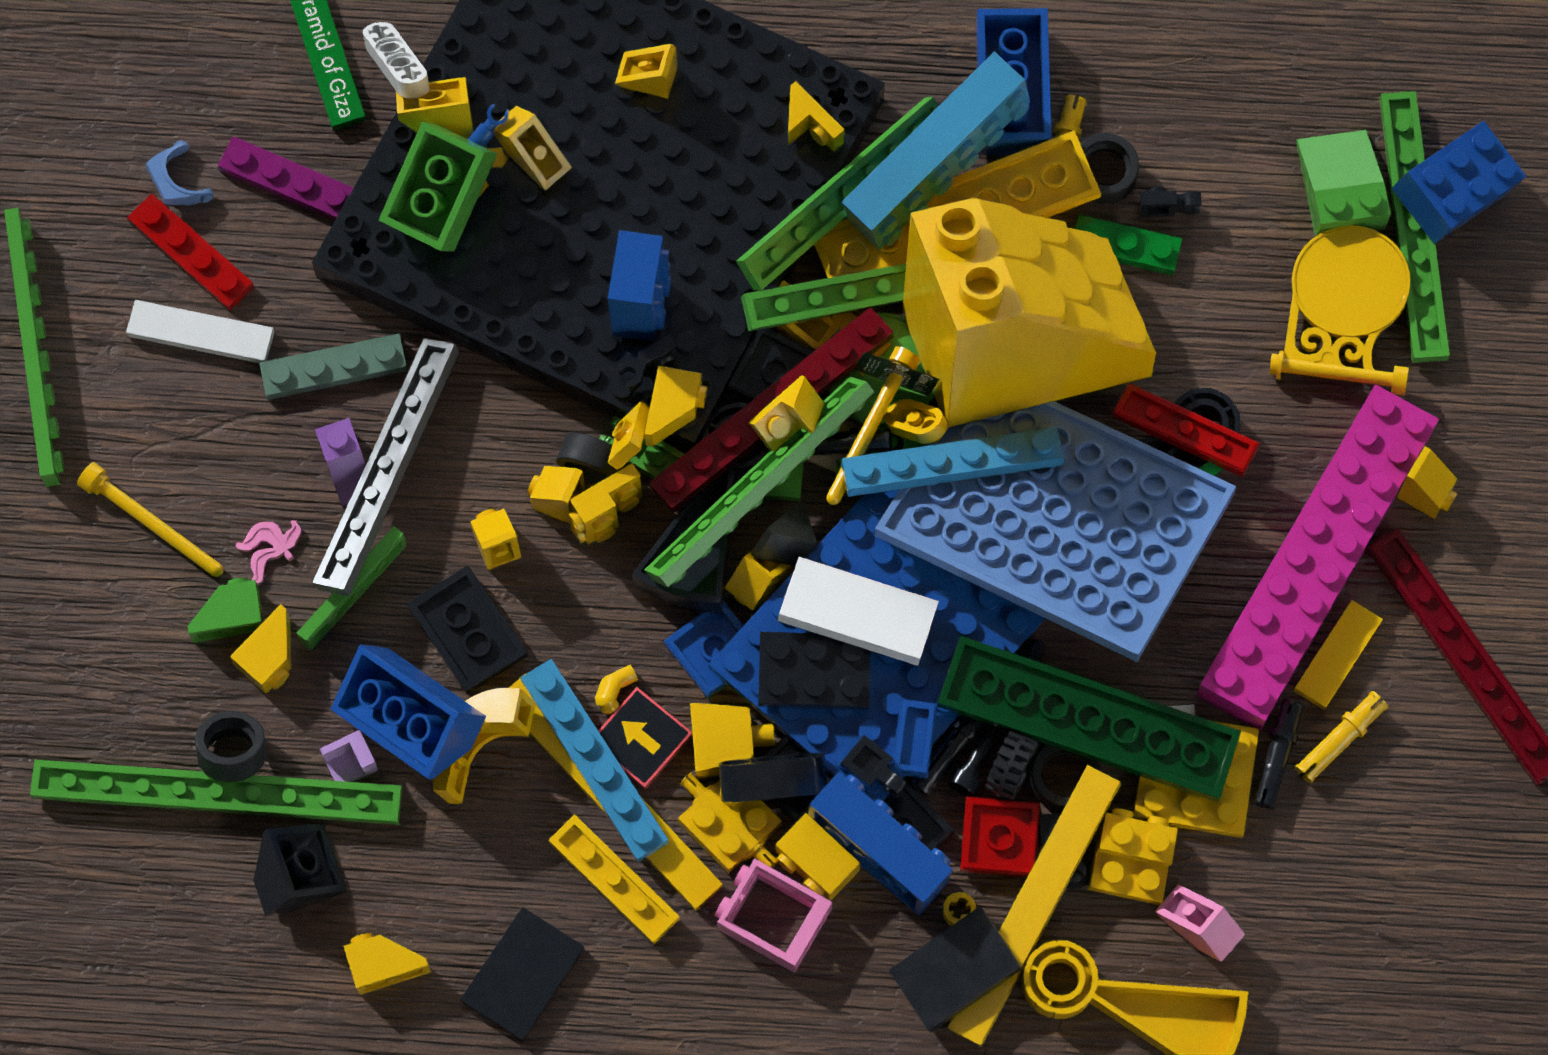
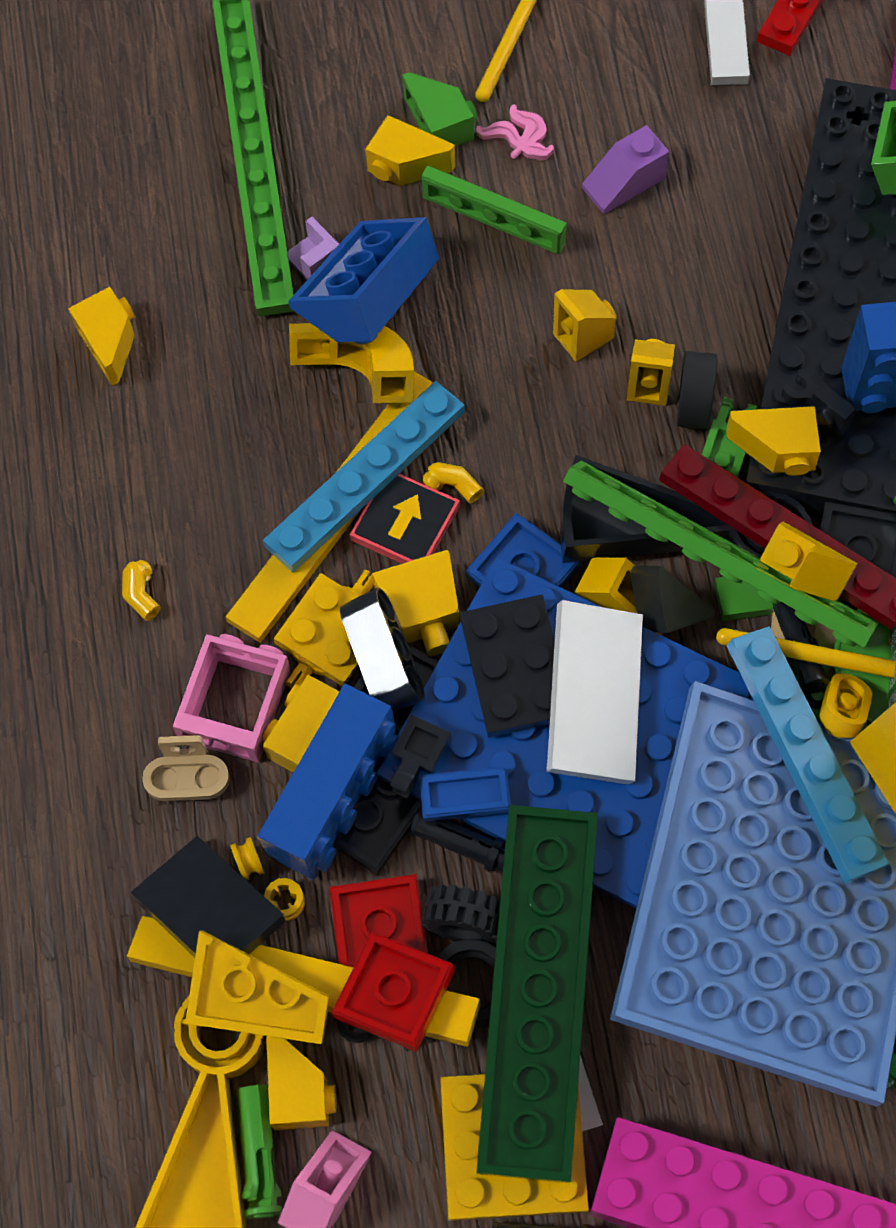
camera: 80 degrees right, 5 degrees down
(231, 768) = (308, 124): black tyre -> none
(296, 869) = (189, 233): black slope -> none
(333, 366) = (728, 141): sand green plate -> none
(386, 467) = (630, 201): plate -> none
(467, 630) = (478, 325): black plate -> none
(522, 974) = (123, 468): black tile -> none
(596, 508) = (646, 409): yellow plate -> none
(614, 879) = (240, 529): yellow plate -> none
(629, 435) = (724, 402): yellow plate -> none
(646, 983) = (133, 589): none -> yellow arm
(833, 968) = (185, 772): none -> tan bracket
(919, 931) = (247, 858): none -> yellow bush
(966, 777) = (443, 871): black piece -> none
(1046, 940) = (251, 996): none -> yellow wing
(1068, 827) = (393, 991): none -> red plate
(1117, 929) = (296, 1089): none -> yellow slope
(1132, 856) = (388, 1087): yellow plate -> none
(1159, 970) = (257, 1153): none -> bright green piece

